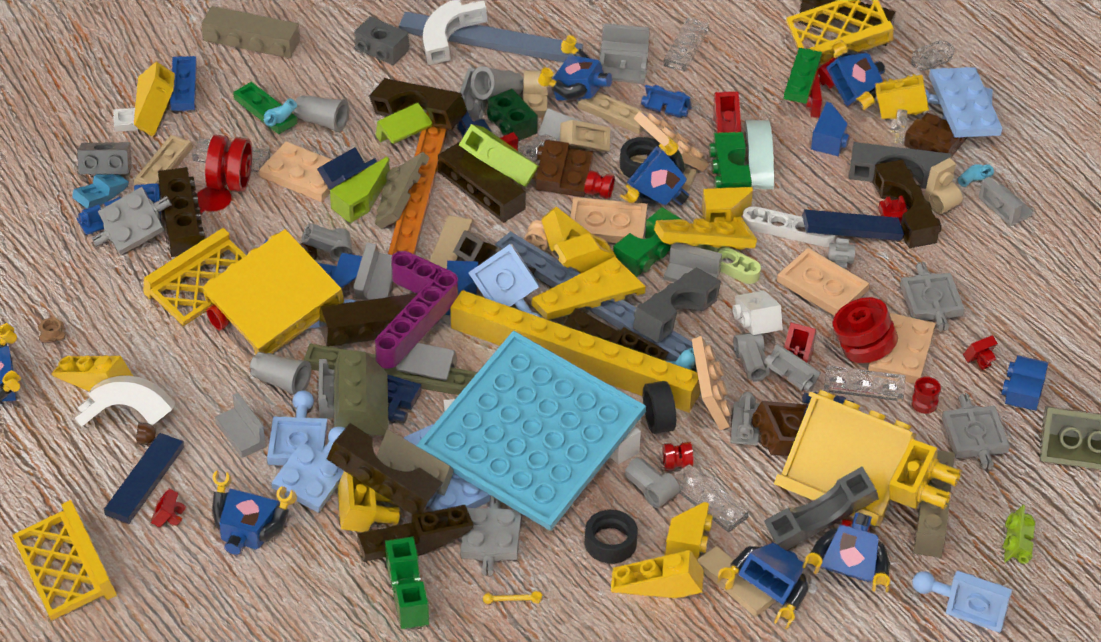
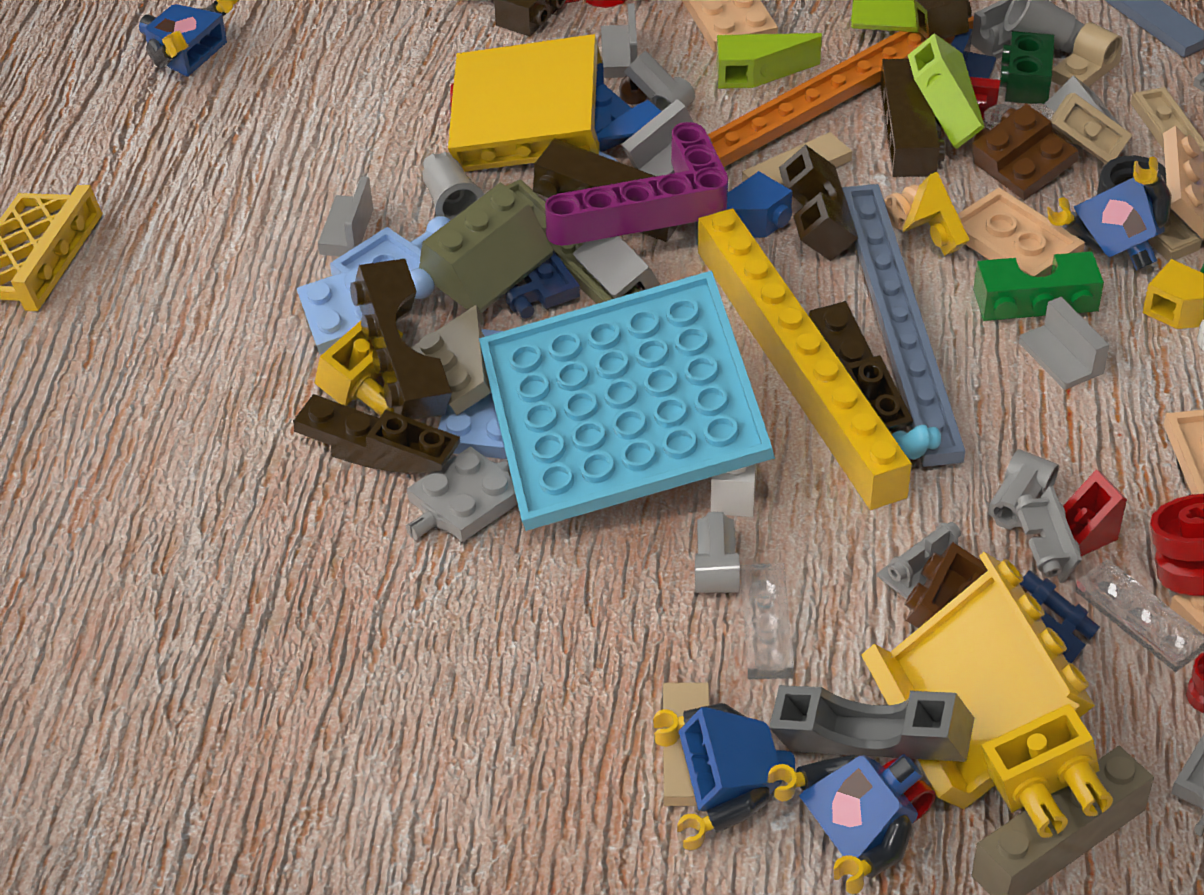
camera: 45 degrees right, 0 degrees up
(51, 330) = (292, 28): medium nougat plate -> none
(90, 370) = (276, 90): yellow slope -> none
(126, 390) = (273, 120): white arch -> none
(144, 478) = (200, 214): dark blue tile -> none
(145, 433) = (250, 170): reddish brown hinge -> none
(166, 509) = (176, 251): red tile -> none
(183, 266) = (475, 34): yellow fence -> none
(246, 517) = (234, 306): torso -> none
(268, 221) = (619, 46): none -> light grey panel
(343, 168) = (764, 20): dark blue panel -> none
(395, 193) = (792, 77): dark tan wing -> none
(406, 585) = (280, 504): green arch -> none
(506, 279) = (794, 227): light blue plate -> none
(535, 597) = (433, 597): yellow hinge -> none
(577, 77) = (1154, 63): torso -> none
(583, 252) = (931, 251): yellow slope -> none
(589, 289) = (887, 292): yellow wing -> none
(599, 184) = (1046, 188): red wheel -> none
(616, 520) = (593, 560): black tyre -> none
(658, 314) = (1025, 368): dark grey arch -> none
(659, 407) = (817, 472): black tyre -> none
(663, 576) = (595, 672): yellow slope -> none
(677, 455) = (783, 545): red wheel -> none
(688, 531) = (689, 642): yellow slope -> none
(711, 385) = (914, 483): light nougat plate -> none
(716, 233) = (1115, 308): yellow wing -> none
(743, 268) = (1121, 379): yellowish green beam -> none
(758, 312) = (1077, 439): white brick -> none

